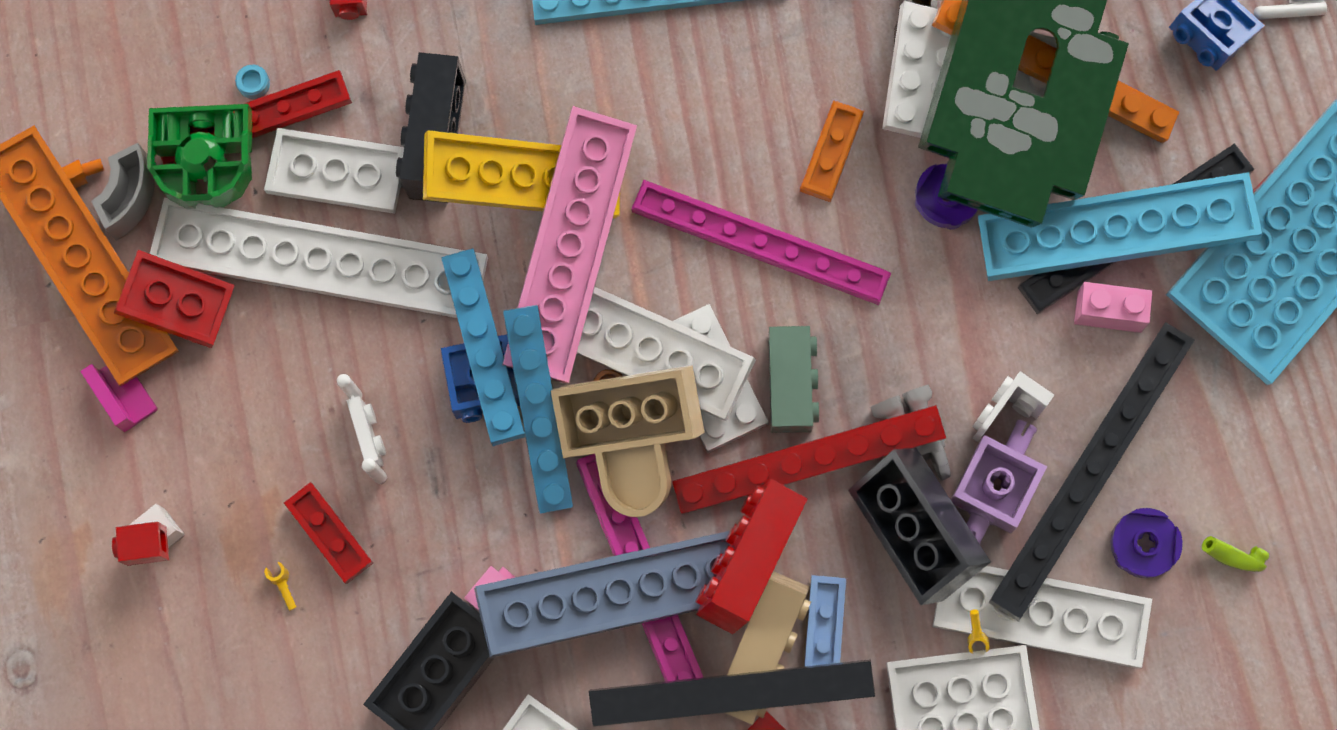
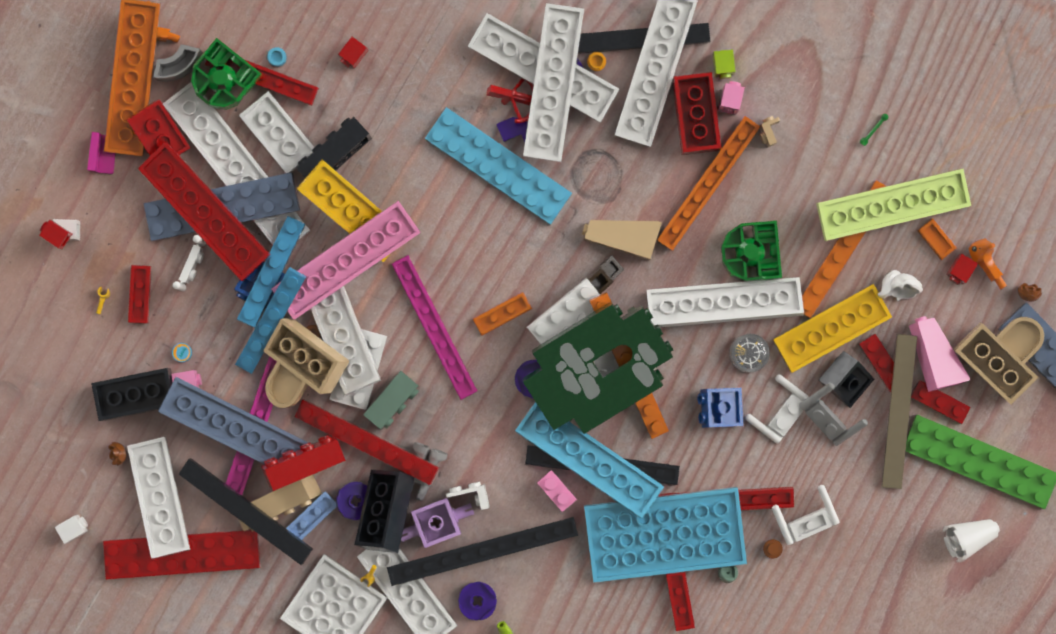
camera: 35 degrees right, 10 degrees up
(323, 342) = (204, 211): none -> red plate
(341, 323) = (245, 200): none -> sand blue plate
(453, 561) = (182, 352): none -> medium azure tile
(845, 558) = (344, 498): none -> dark purple plate

